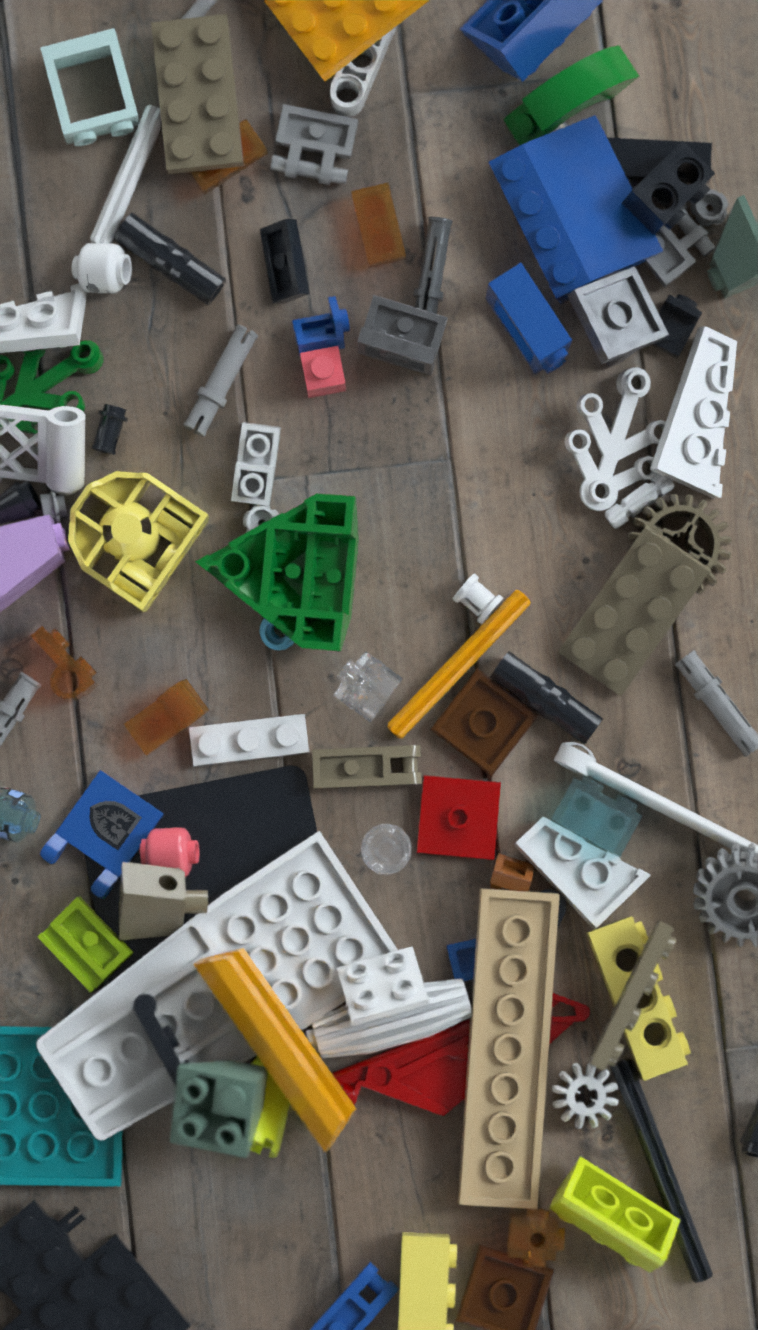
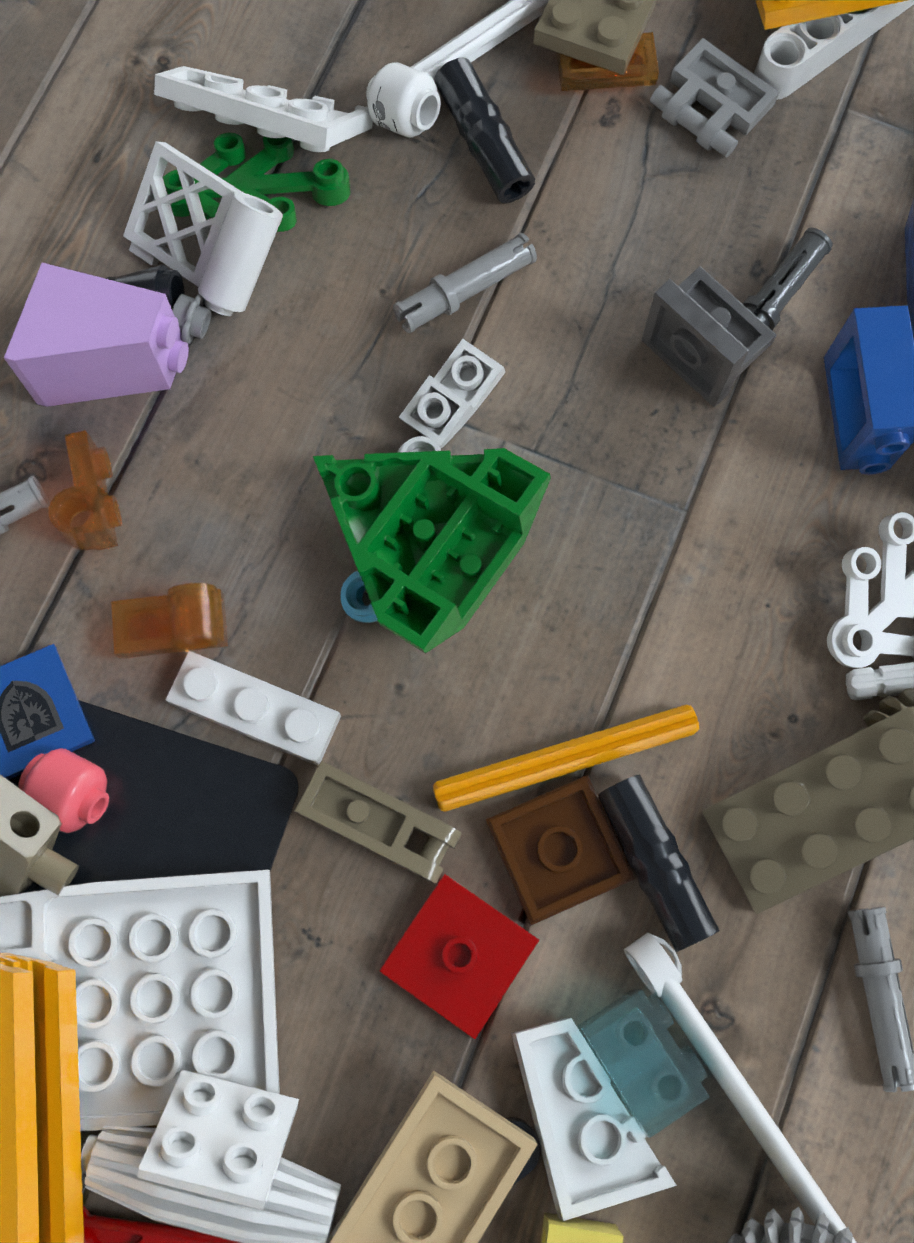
camera: 30 degrees right, 10 degrees down
(109, 428) = (307, 268): black pin -> none
(129, 544) = (250, 404): light yellow connector -> none
(284, 261) = (612, 194): black plate -> none
(322, 330) = (610, 290): blue bracket -> none
(323, 371) = (590, 328): coral brick -> none
(366, 685) = (435, 718): clear brick -> none
(378, 224) = (742, 212): clear orange plate -> none
(386, 849) = (338, 944): clear wheel -> none
(462, 959) = (358, 1154): blue tile -> none
(477, 599) = (634, 688): white bush -> none
(511, 874) = (487, 1074): dark orange tile -> none

